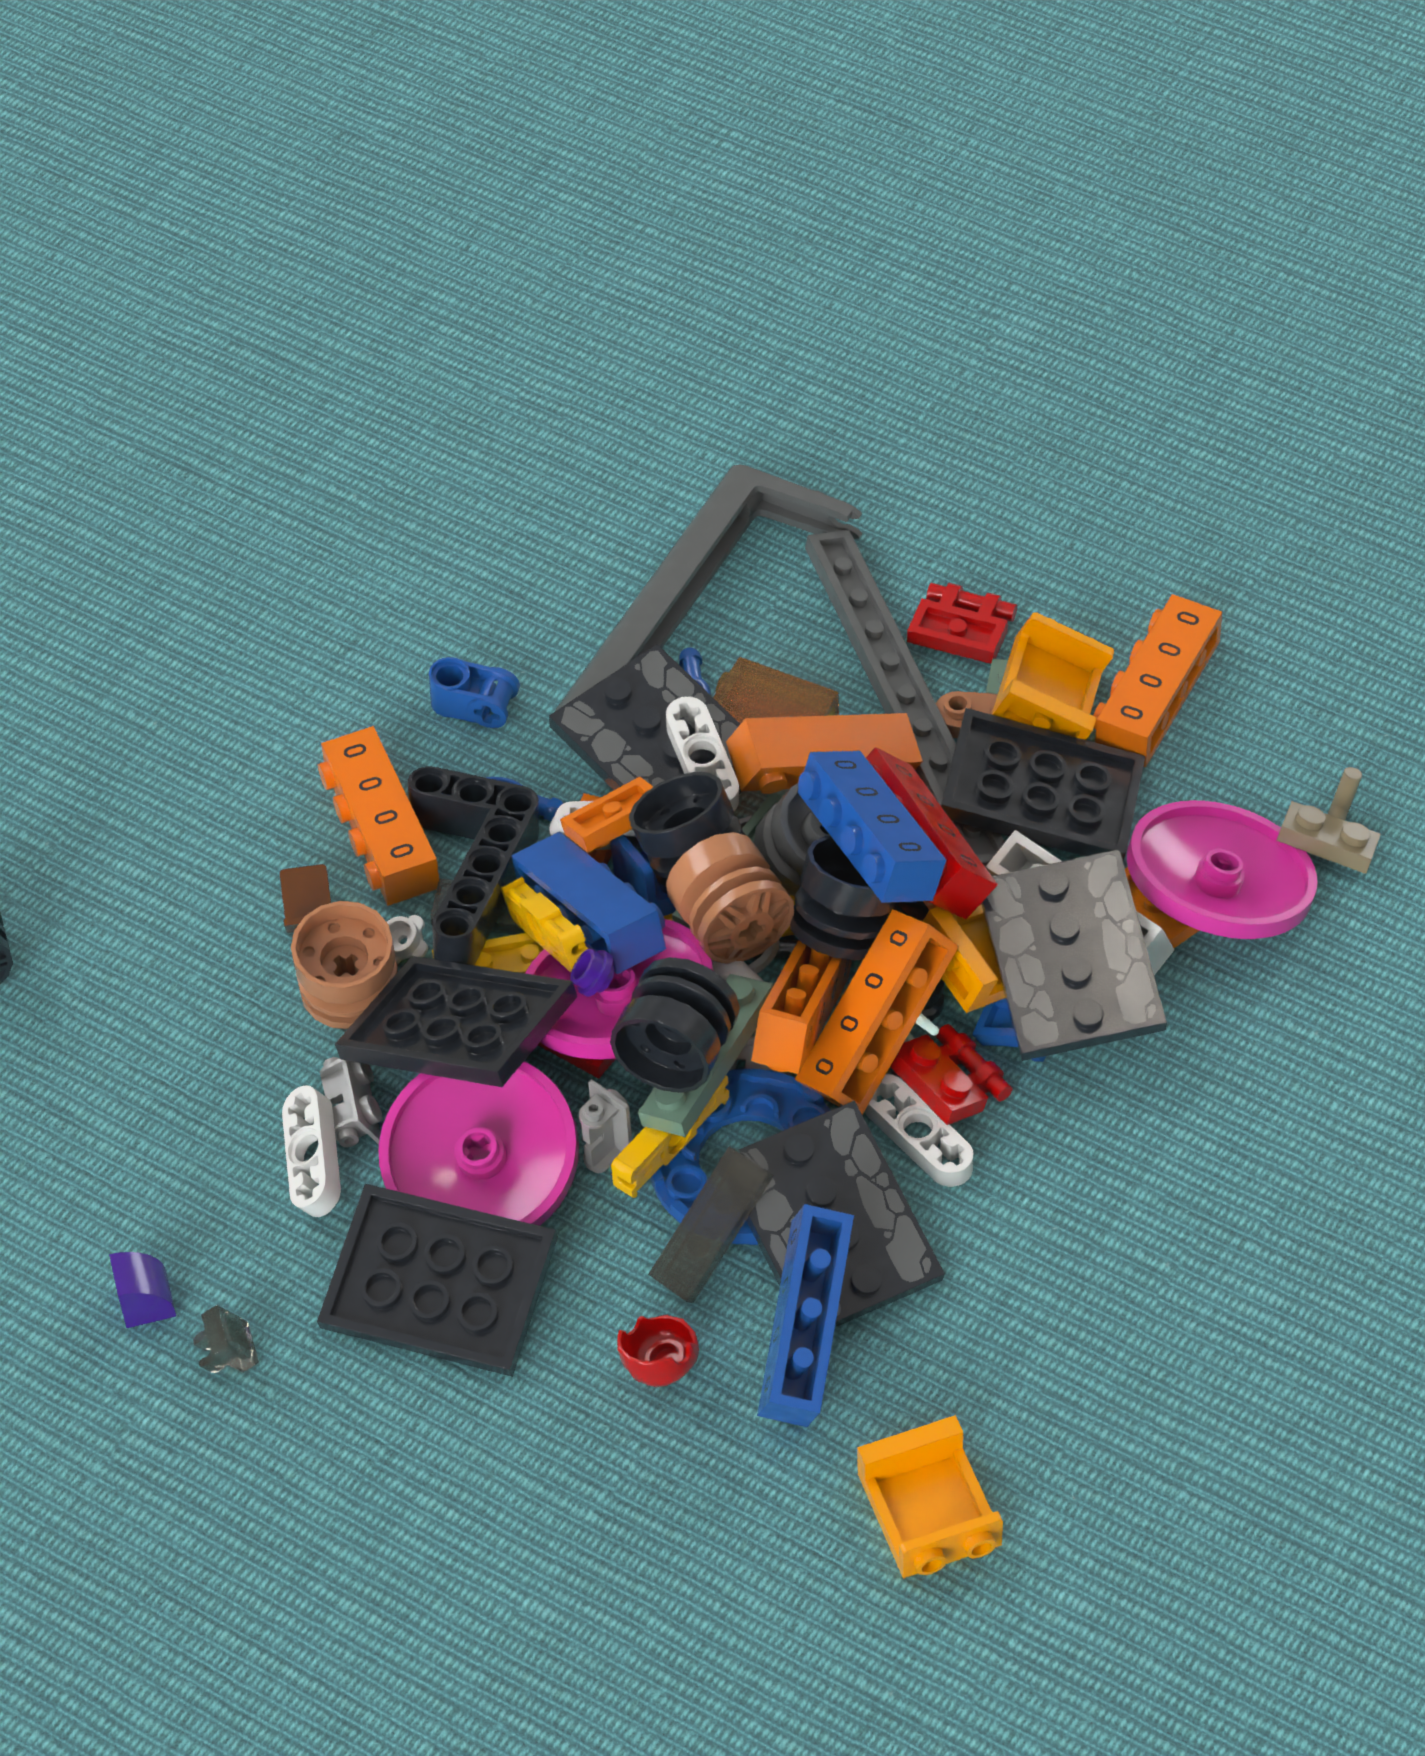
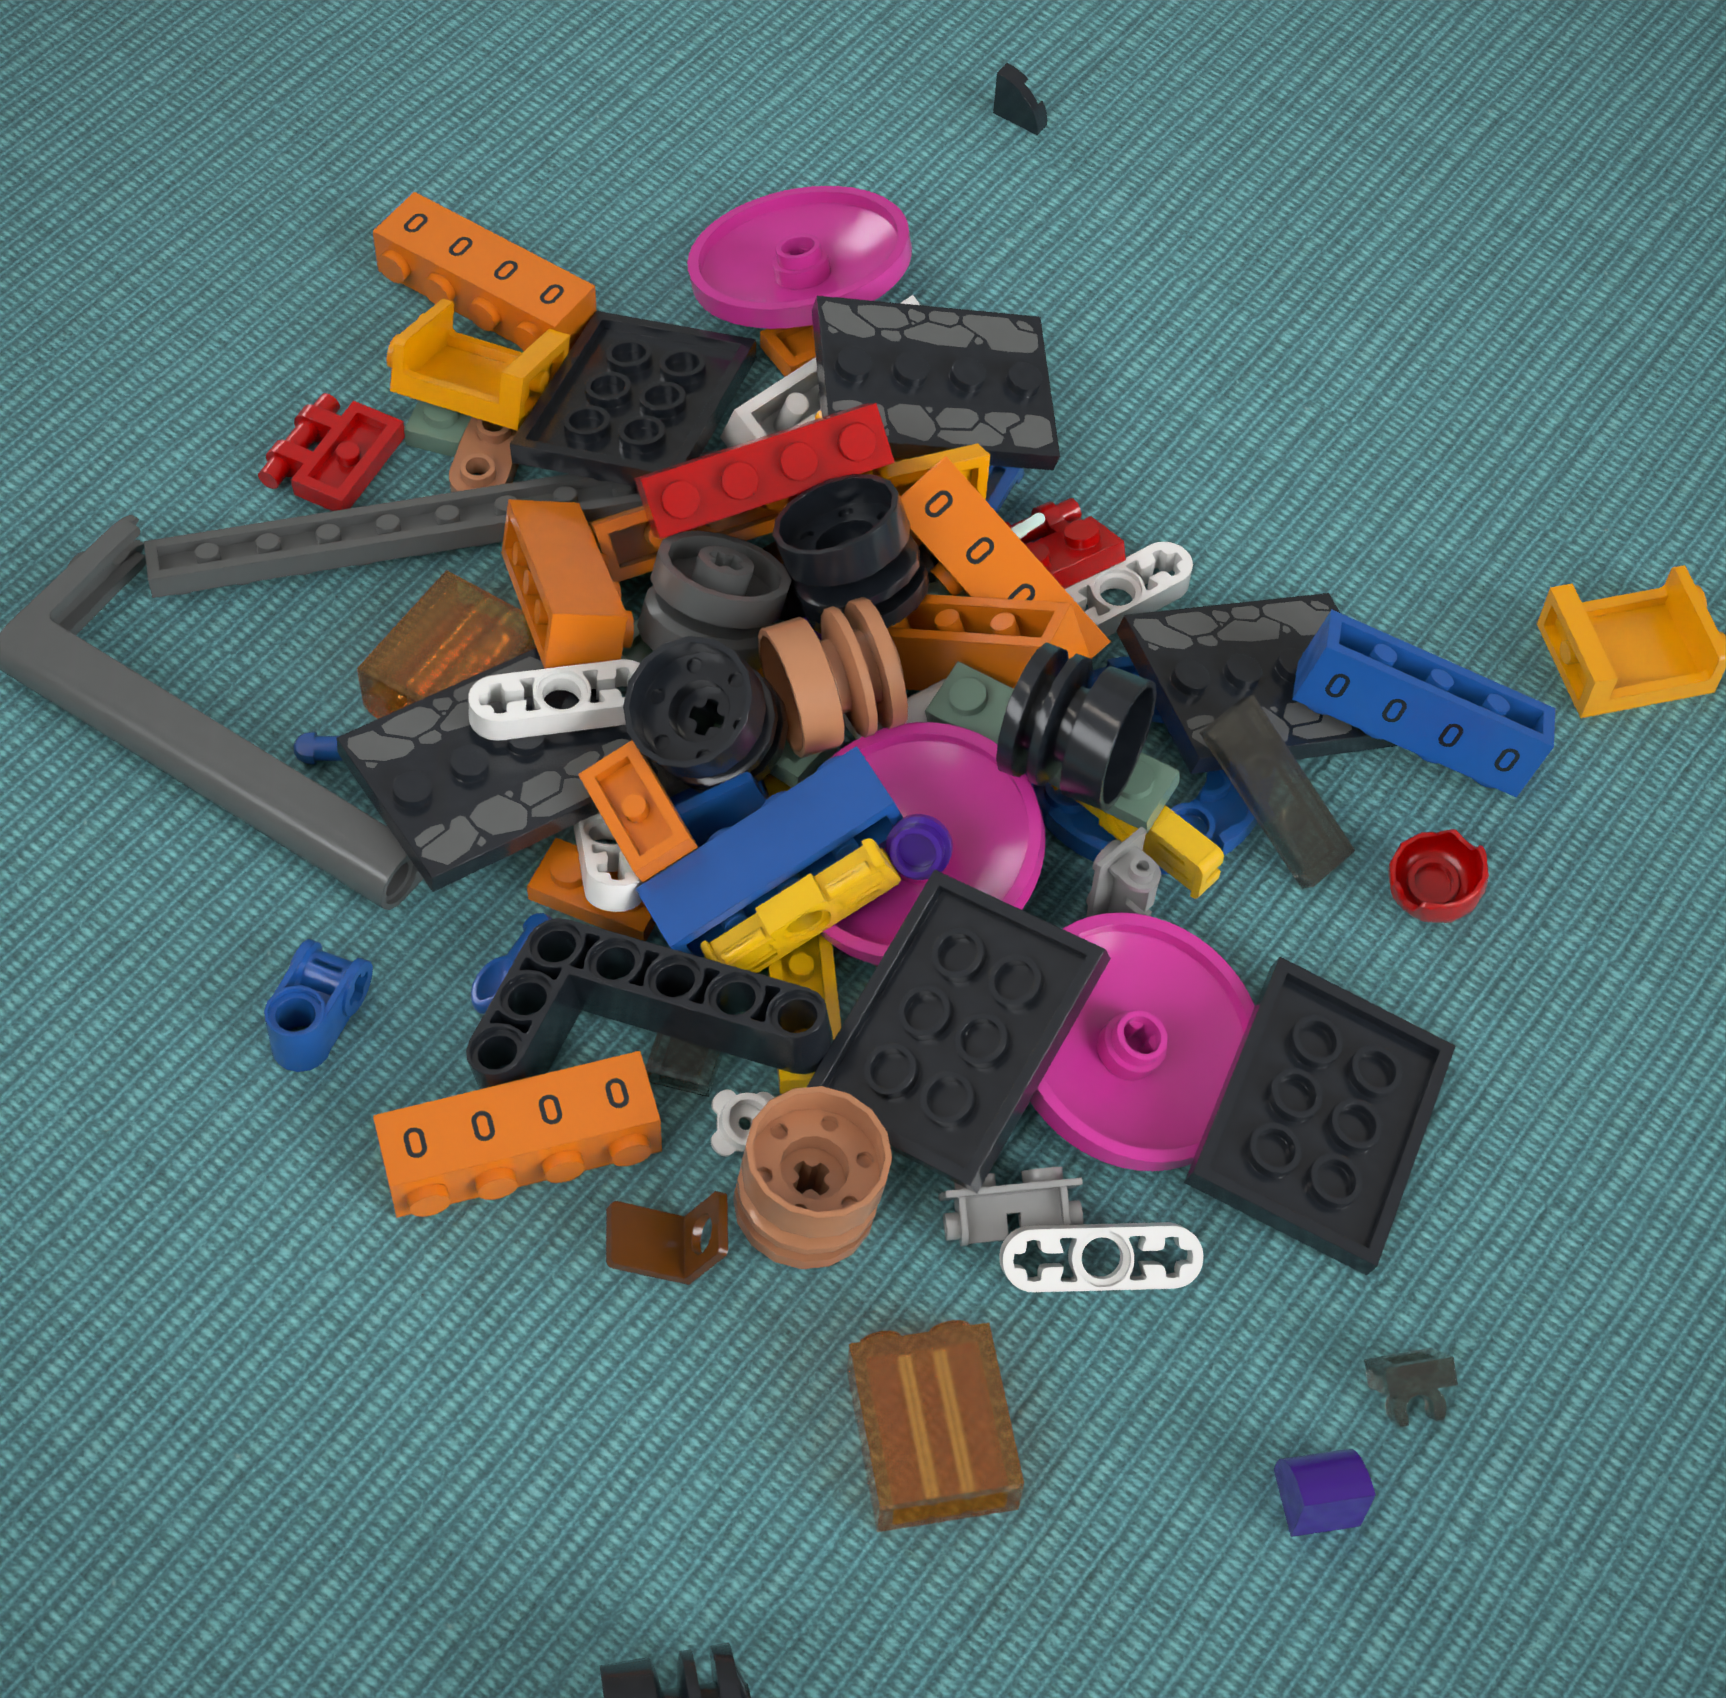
camera: 90 degrees left, 5 degrees up
(180, 1063) = (934, 1425): none -> clear orange brick
(871, 826) = (791, 484): blue brick -> none
(1329, 833) = (750, 174): dark tan plate -> none

